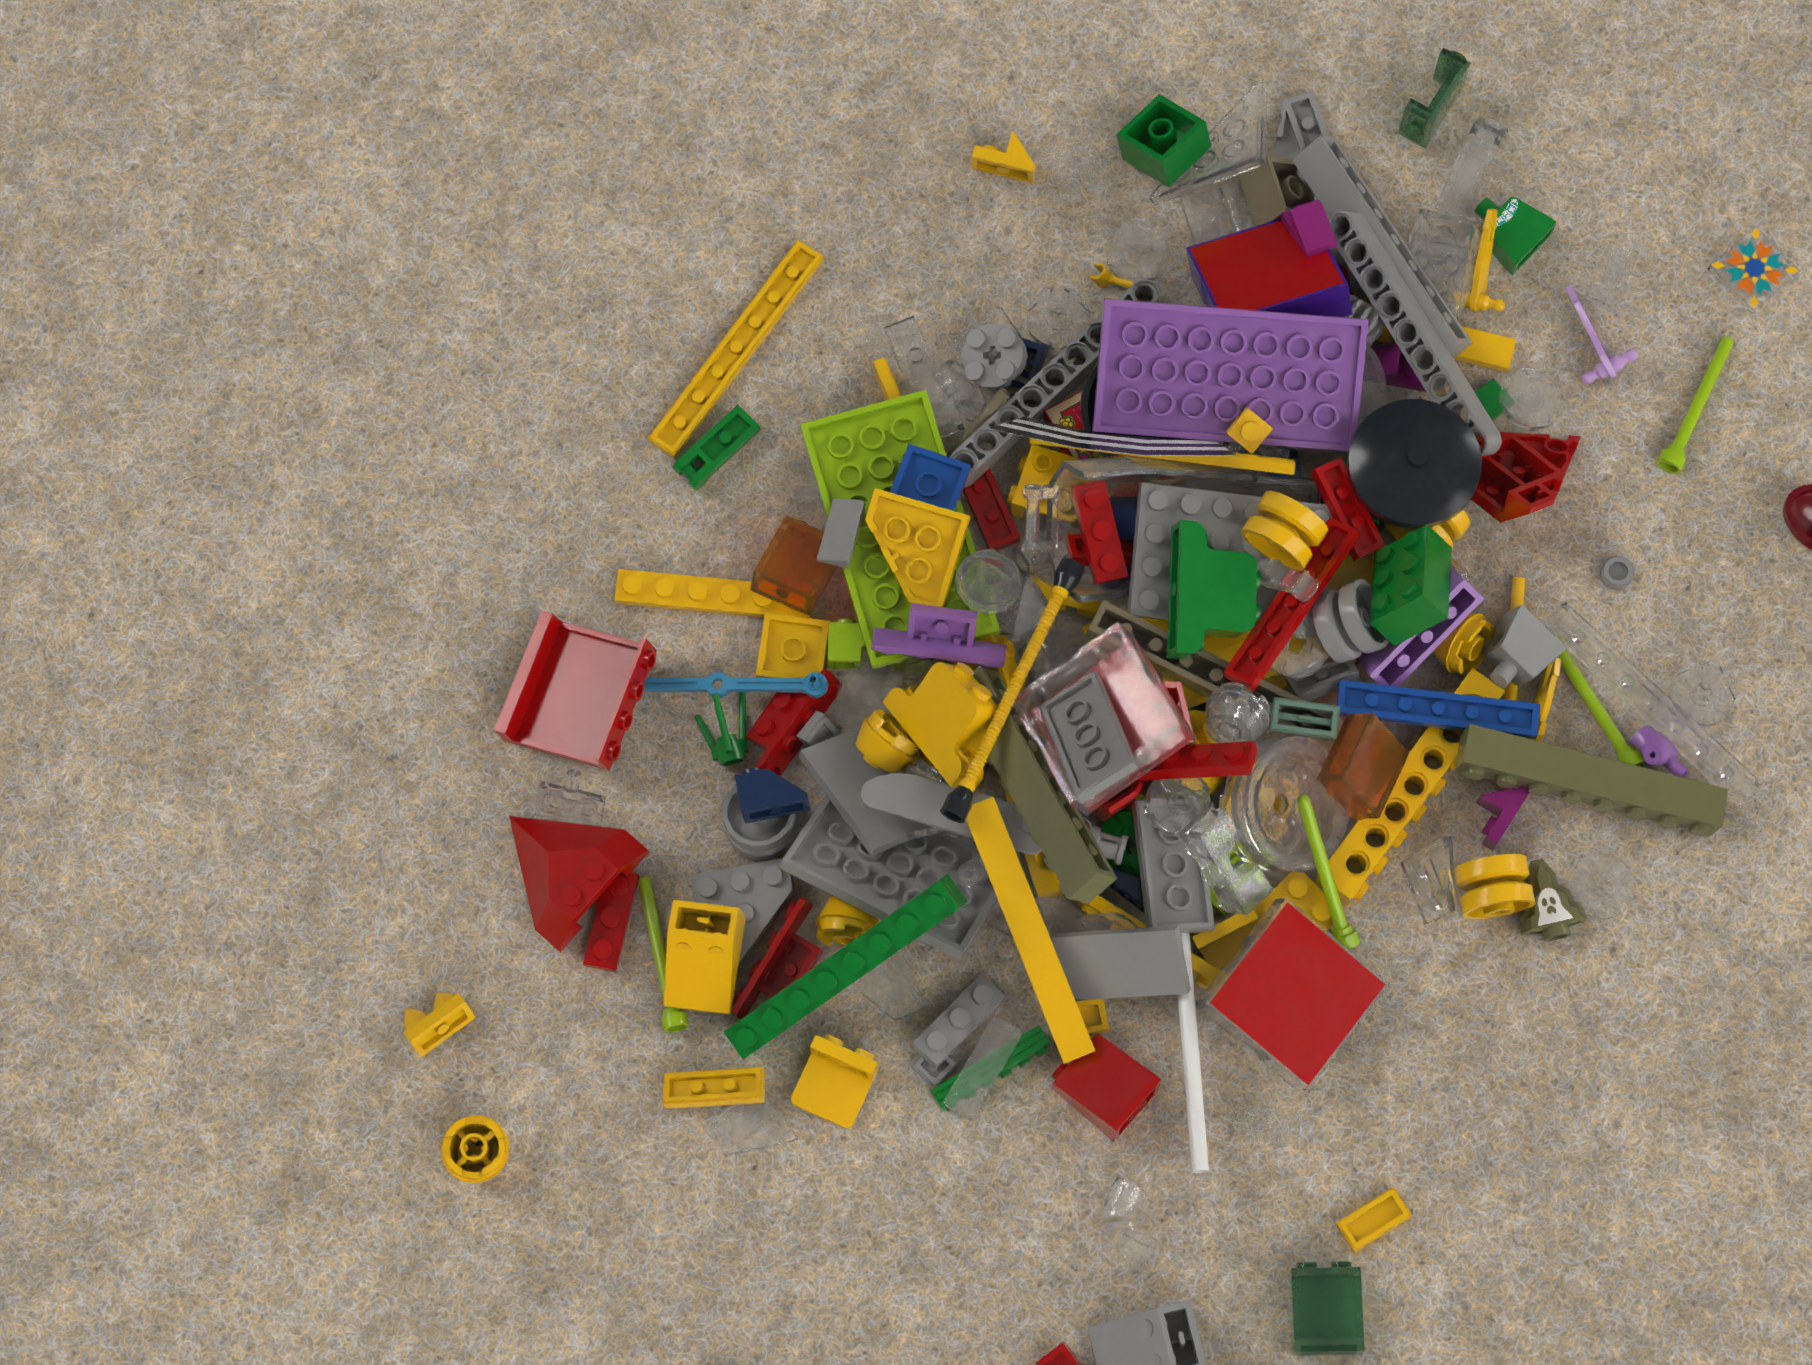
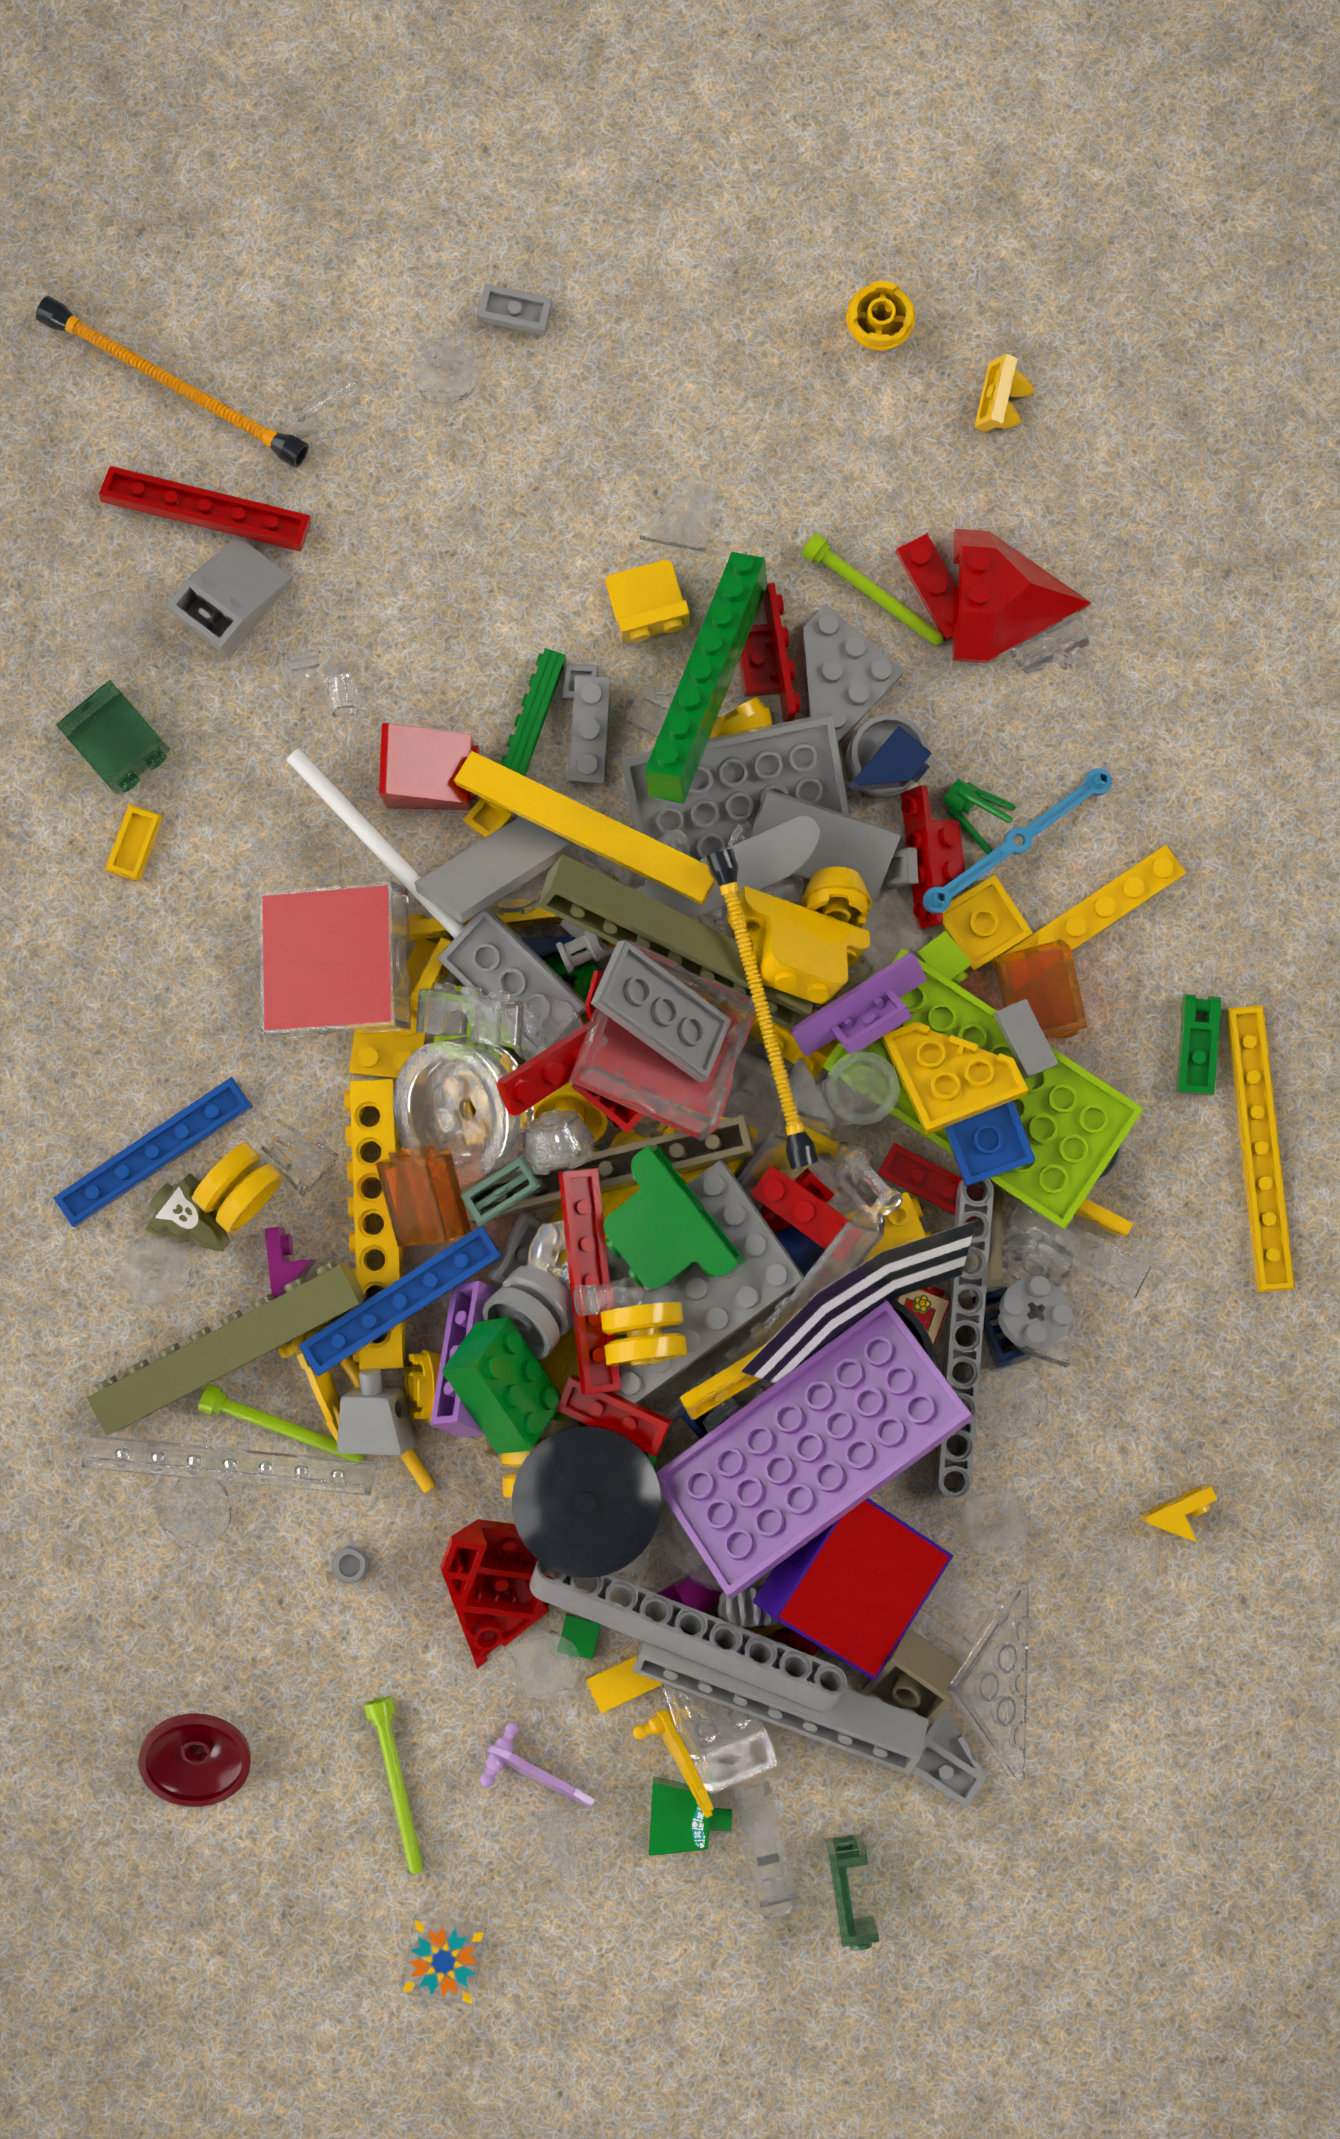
camera: 140 degrees right, 10 degrees up
(575, 692) = (1128, 738): panel -> none
(702, 956) = (835, 605): yellow slope -> none
(714, 1087) = (737, 519): yellow tile -> none
(982, 1068) = (537, 703): clear tile -> none
(1107, 278) = (1000, 1476): yellow hand -> none
(1164, 140) = (1057, 1644): green brick -> none
(1249, 430) = (754, 1413): yellow plate -> none
(1309, 227) = (856, 1655): magenta slope -> none
(1342, 930) = (335, 1052): lime piece -> none
(1538, 974) = (152, 1152): none -> blue tile
(1658, 750) = (191, 1425): medium lavender piece -> none

